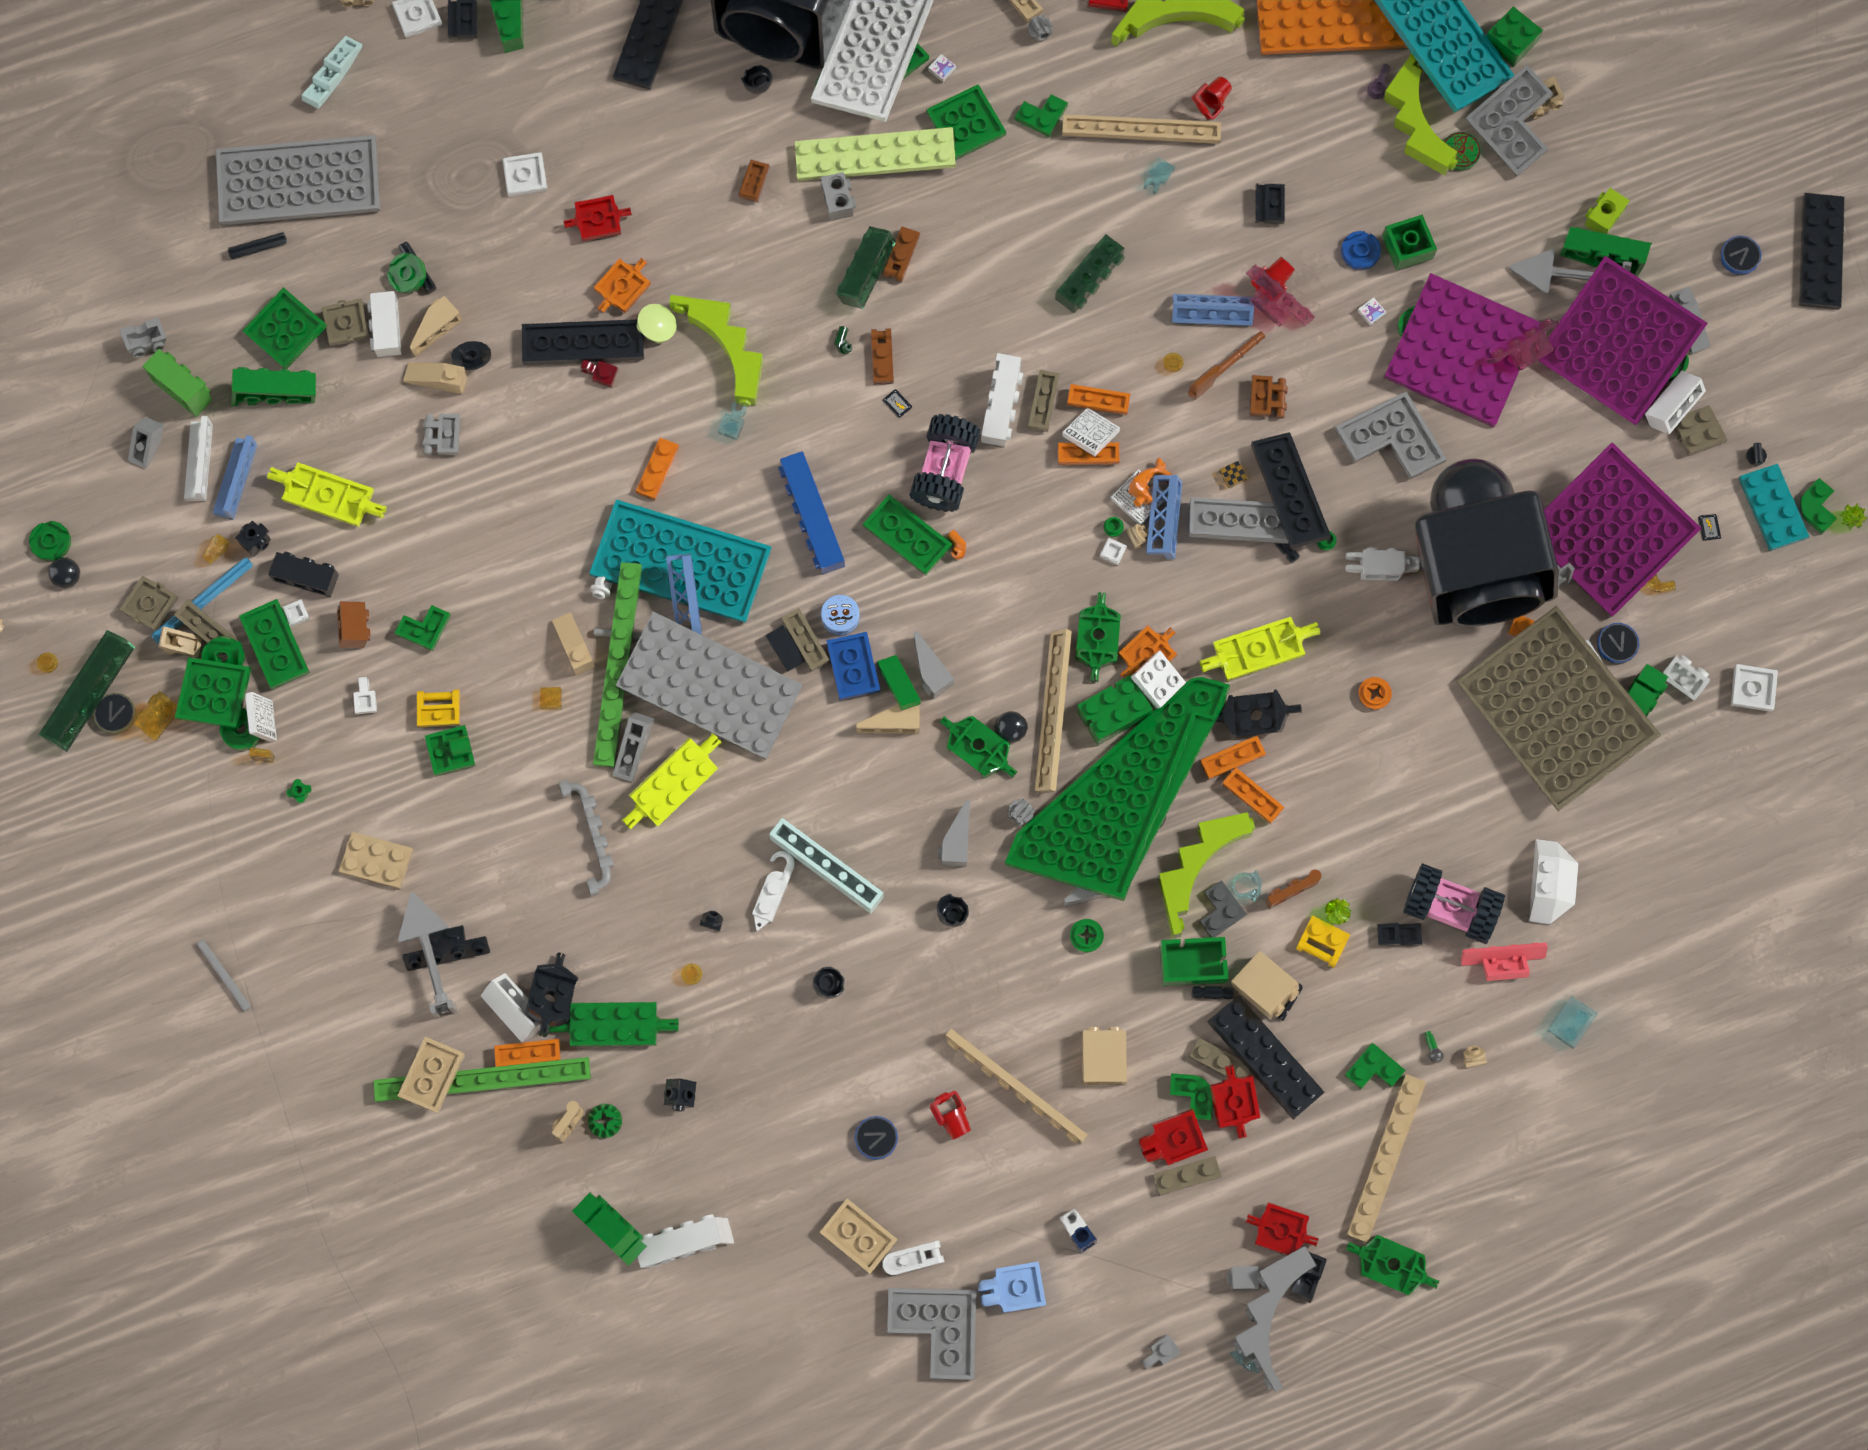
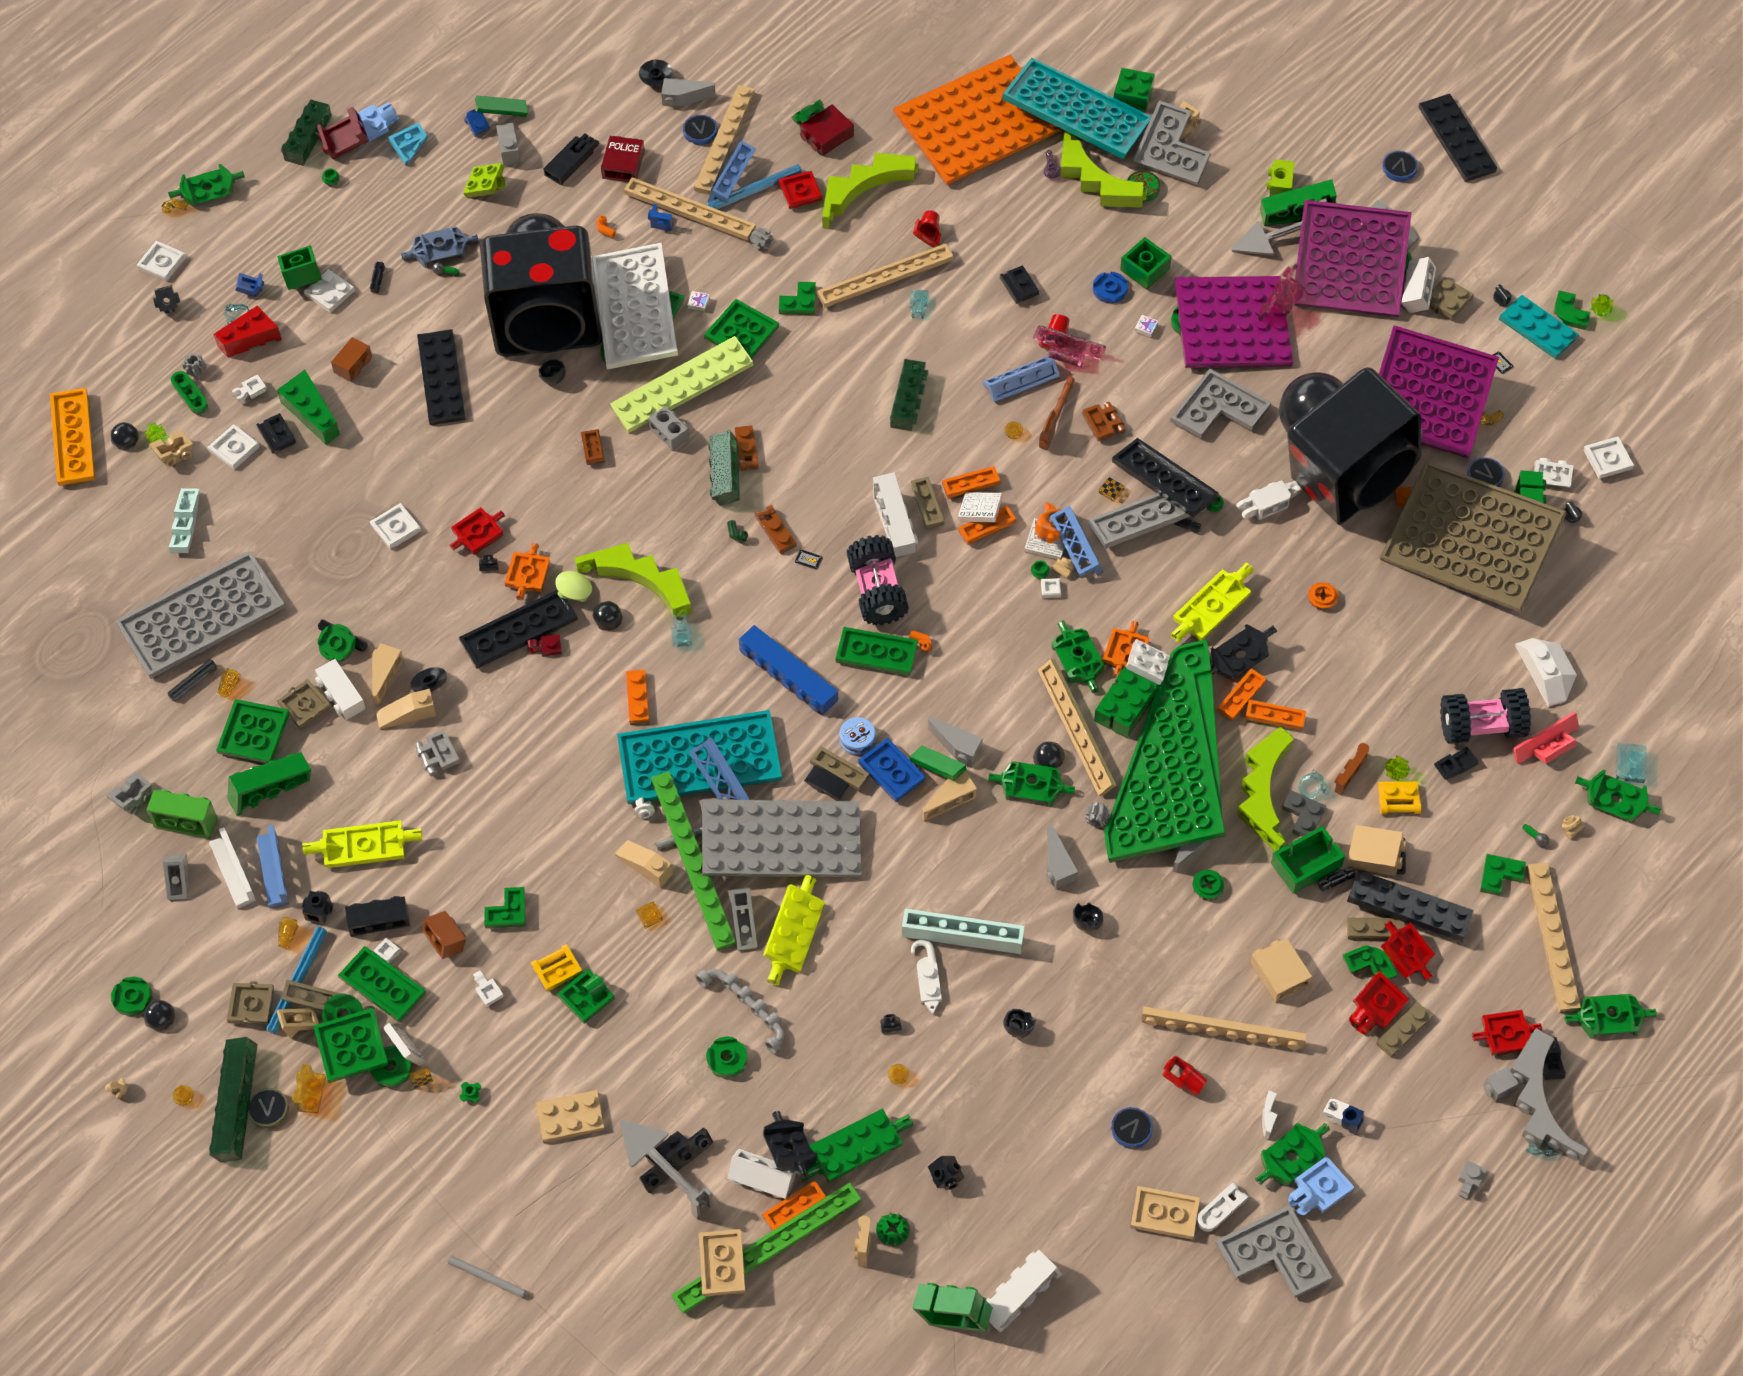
camera: 25 degrees left, 15 degrees down
(288, 265) = (228, 682): none -> clear yellow cone
(540, 865) = (726, 1068): none -> green plate
(591, 257) = (488, 562): none -> black plate
(673, 369) = (607, 615): none -> black hair
(1005, 1198) = (1269, 1117): none -> white slope
(1026, 1243) = (1301, 1141): none -> green plate
(1552, 1058) = (1633, 799): none -> green plate
(1679, 729) = (1573, 513): none -> black plate

